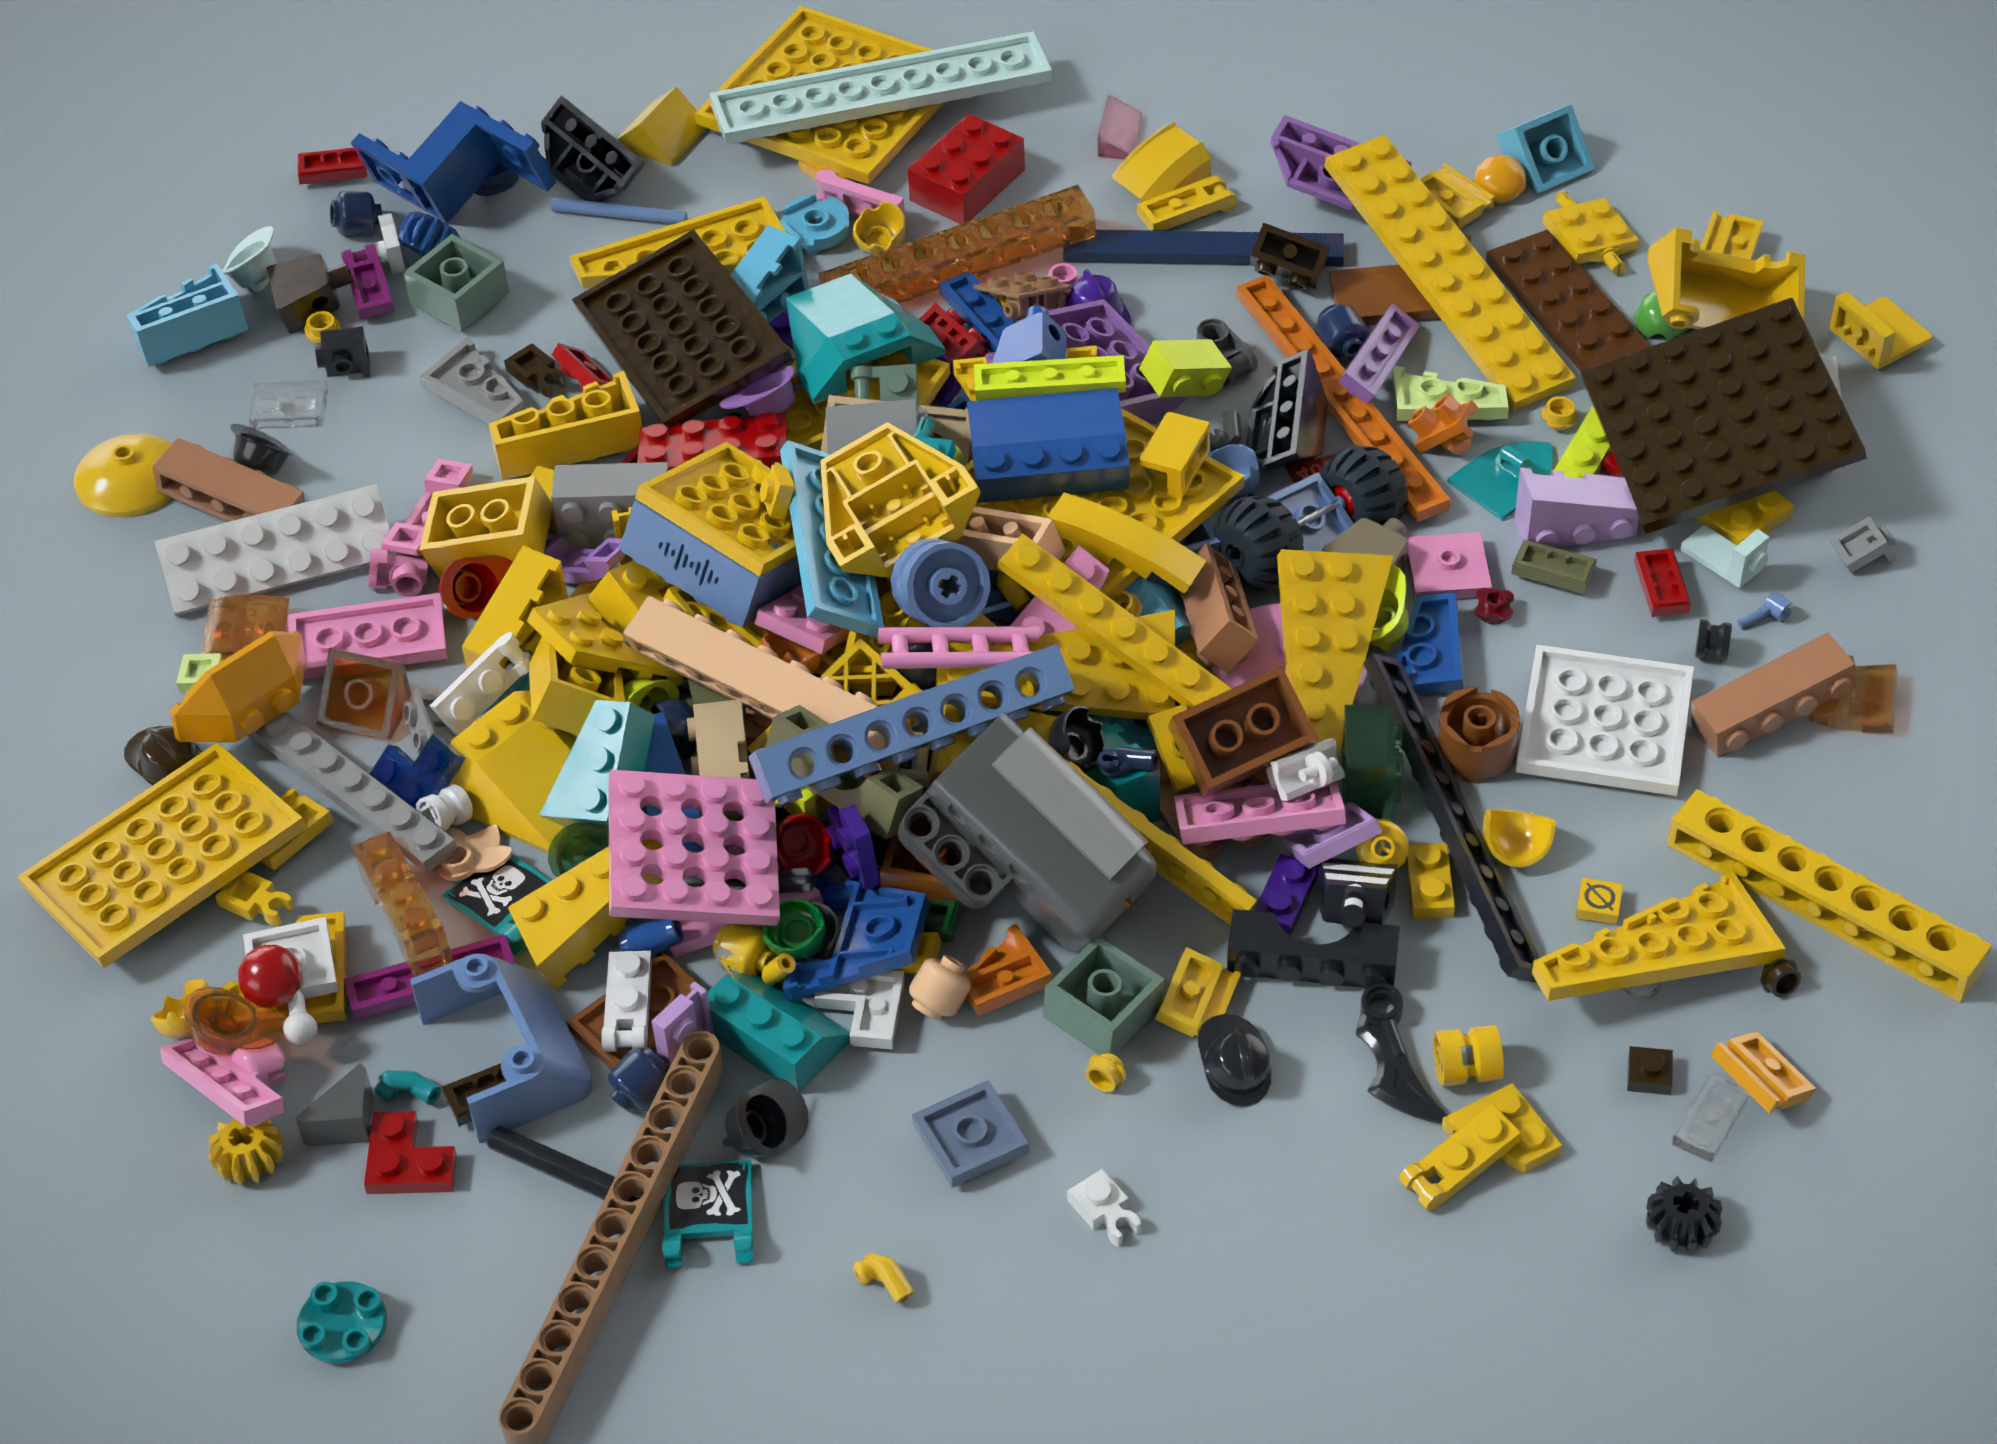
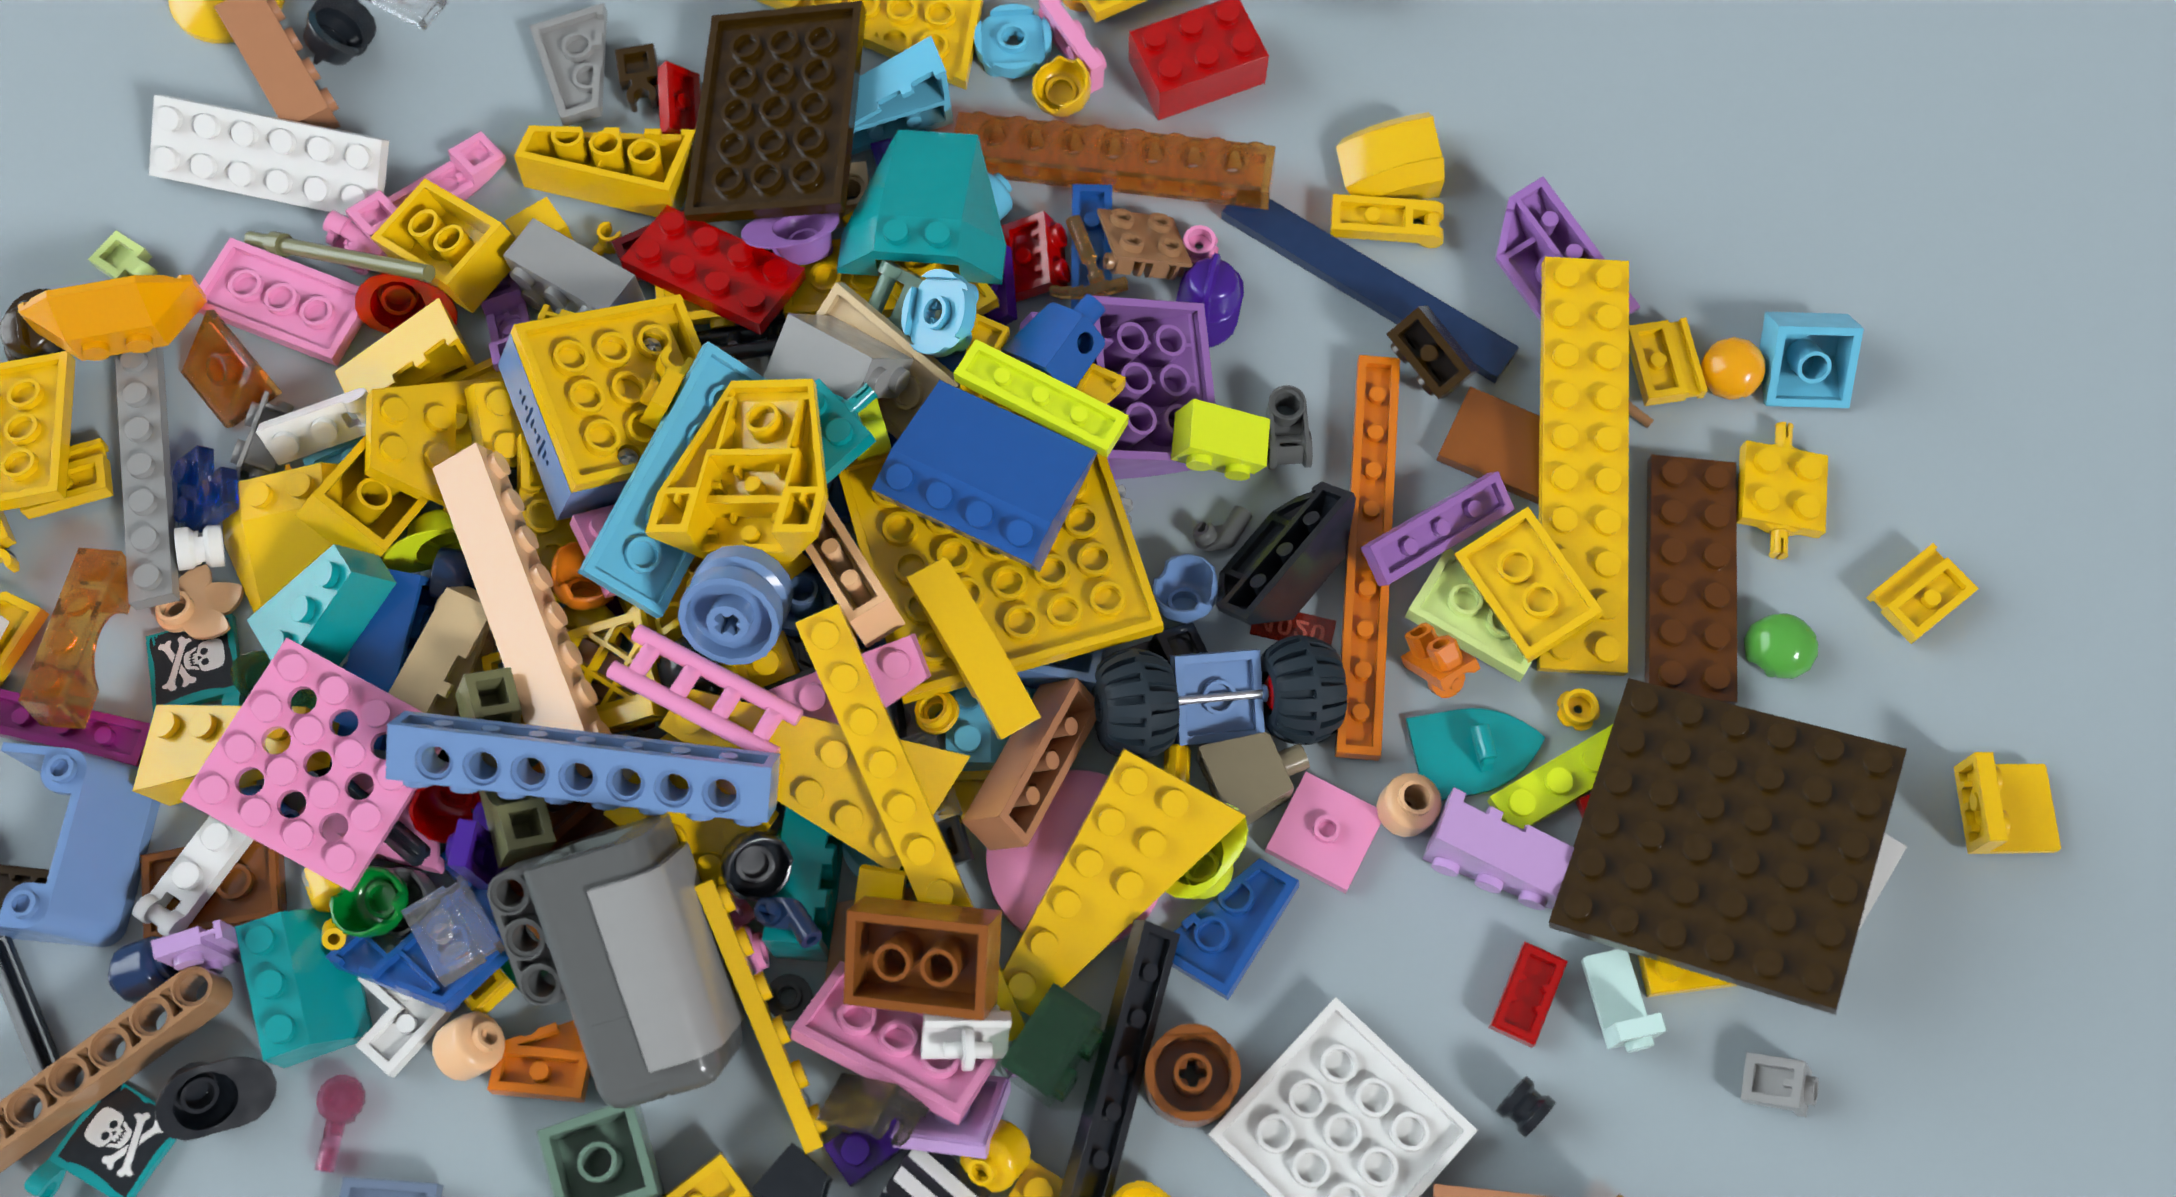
camera: 30 degrees right, 20 degrees up
(241, 620) = (191, 229): clear orange slope -> none
(340, 598) = (284, 246): none -> olive bar
(865, 1083) = (339, 1103): none -> clear pink plate
(876, 908) = (452, 930): none -> clear plate
(947, 375) = (958, 304): none -> medium azure plate
(987, 315) = (1098, 285): none -> clear orange piece
(1118, 129) = (1386, 85): clear pink slope -> none
(1178, 449) = (1104, 563): yellow panel -> none
(1273, 847) = (870, 1106): none -> clear smoke hinge
(1341, 330) = (1423, 473): dark blue head -> none
(1469, 349) = (1528, 584): none -> yellow plate
(1493, 513) = (1409, 804): none -> light nougat head
(1494, 605) = (1335, 925): dark red plate -> none
(1554, 566) = (1430, 903): olive plate -> none
(1709, 287) = (1862, 669): yellow windscreen -> none
(1774, 605) = (1628, 1099): medium blue hand -> none

